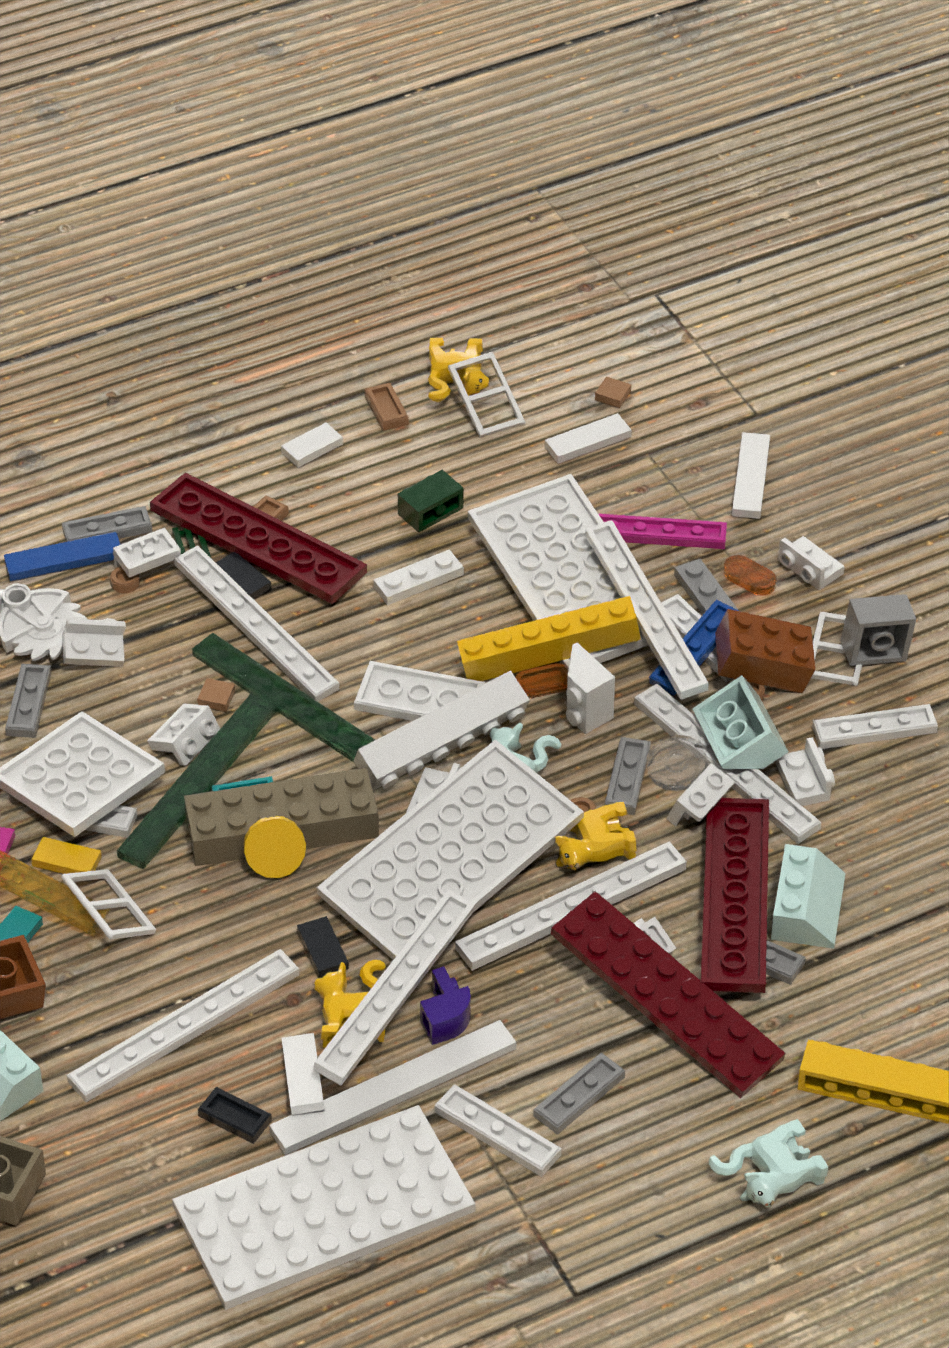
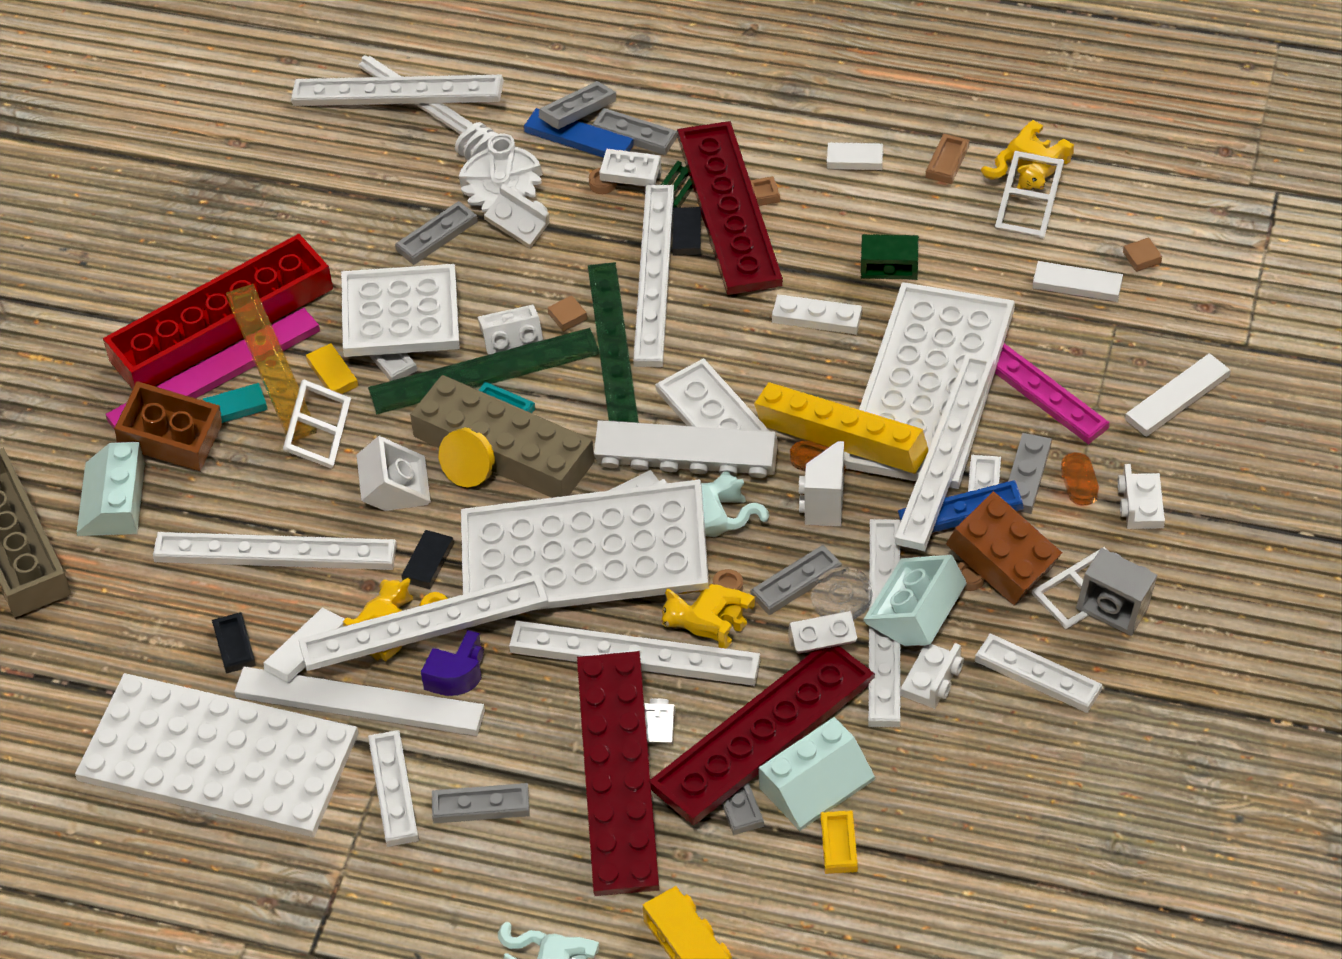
camera: 45 degrees right, 5 degrees up
(42, 531) = (577, 105): none -> light grey plate
(221, 903) = (392, 476): none -> white slope
(873, 935) = (838, 842): none -> yellow tile

